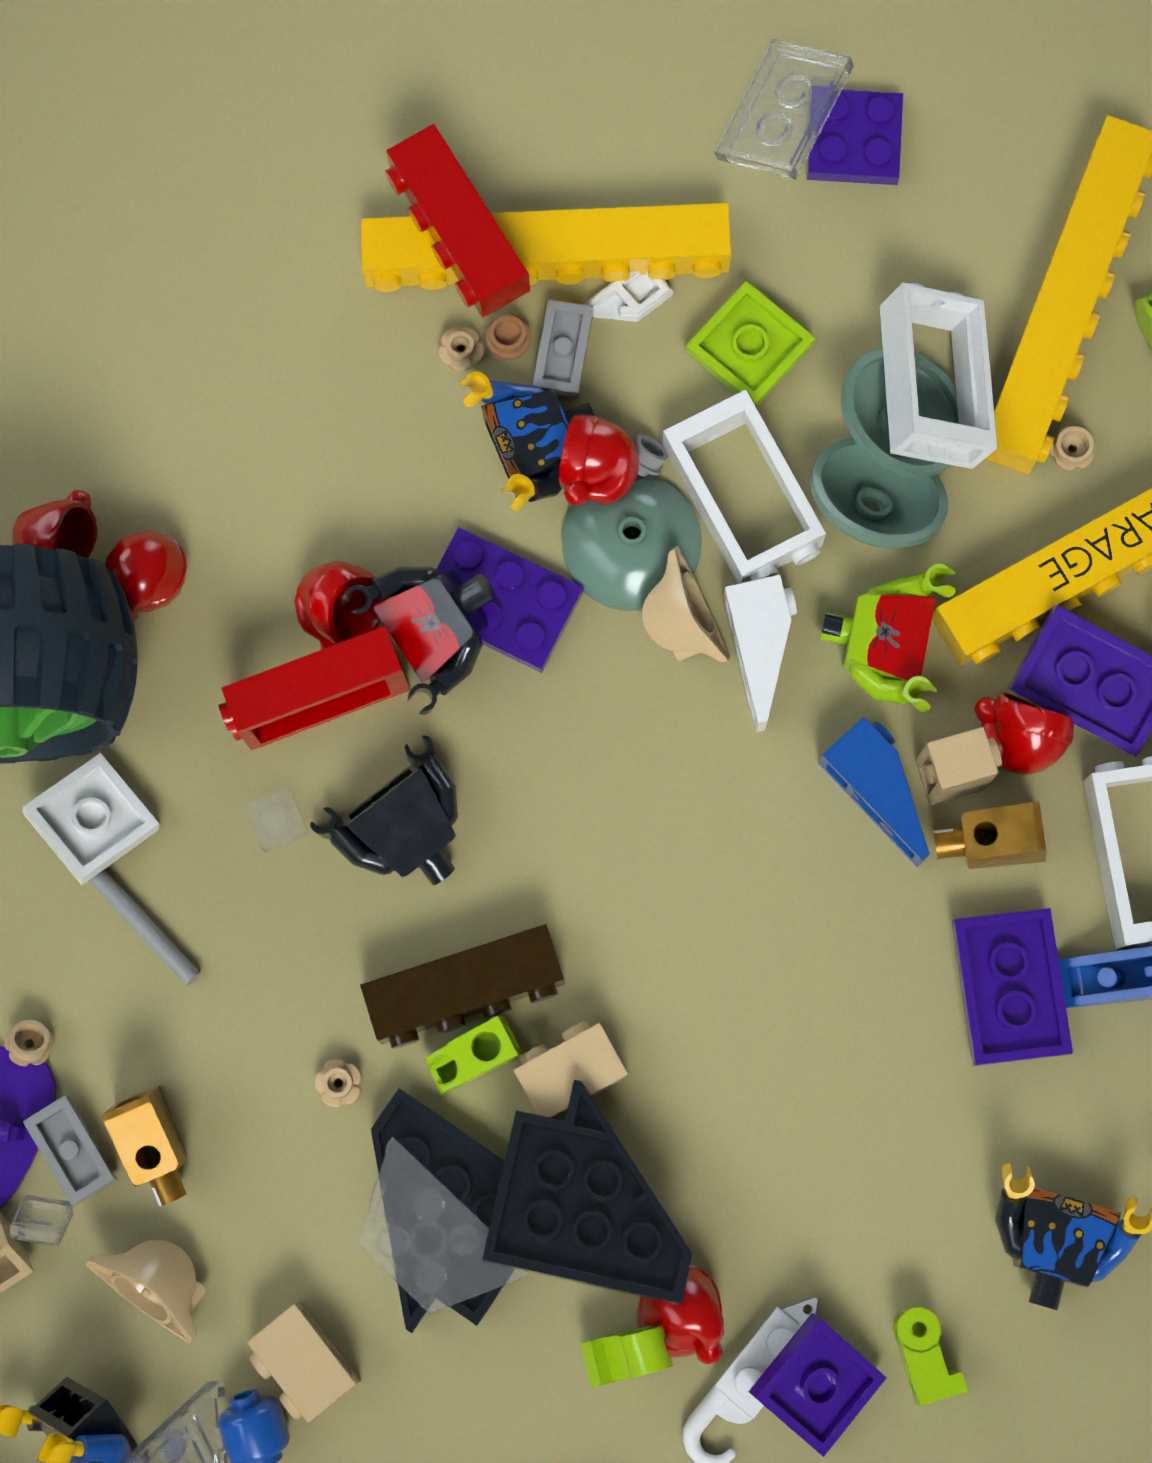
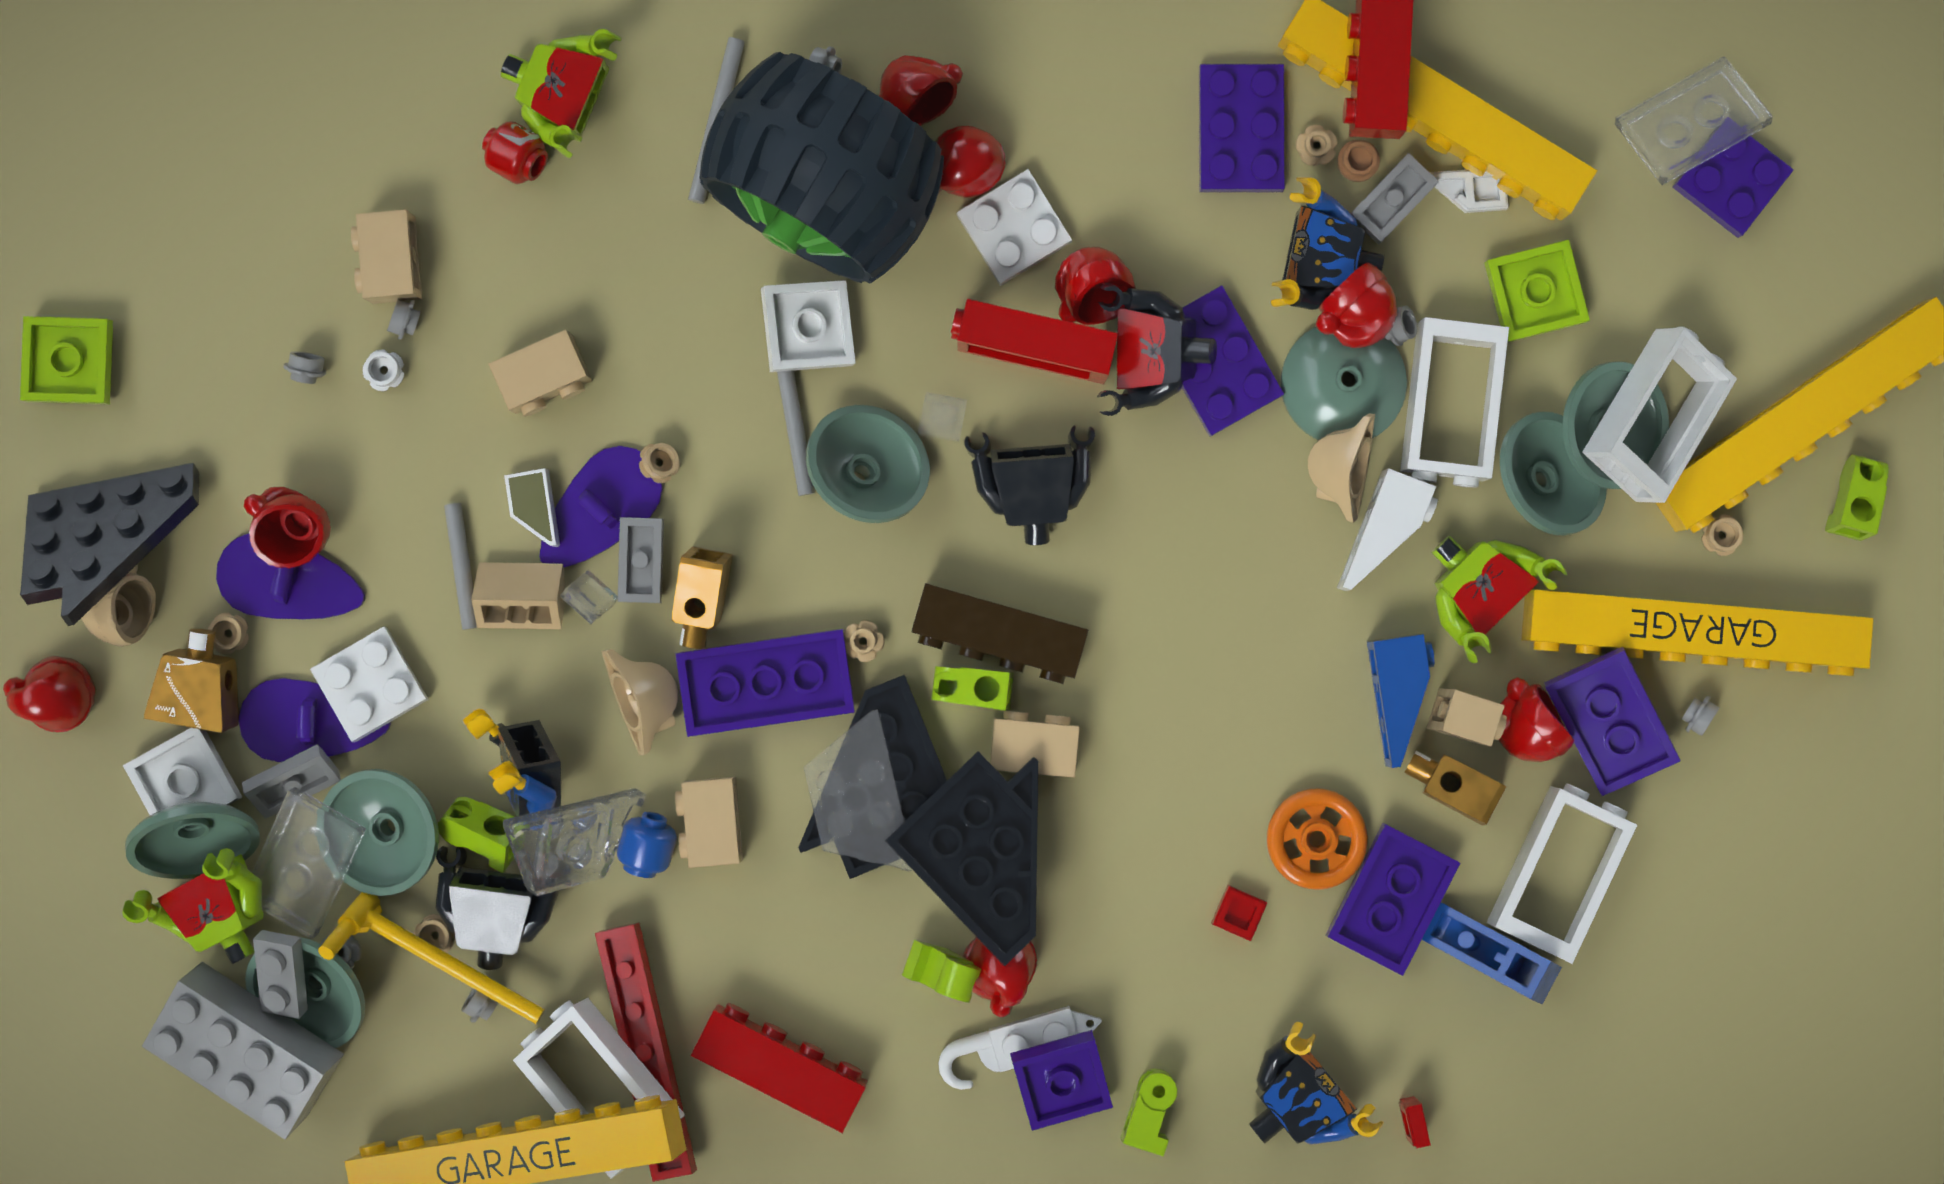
camera: 25 degrees right, 10 degrees up
(225, 891) = (877, 447): none -> sand green dish
(229, 602) = (1014, 227): none -> white plate
(268, 1188) = (765, 682): none -> dark purple plate
(382, 378) = (1241, 128): none -> dark purple plate
(876, 1101) = (1239, 913): none -> red tile
(922, 944) = (1314, 803): none -> orange plate

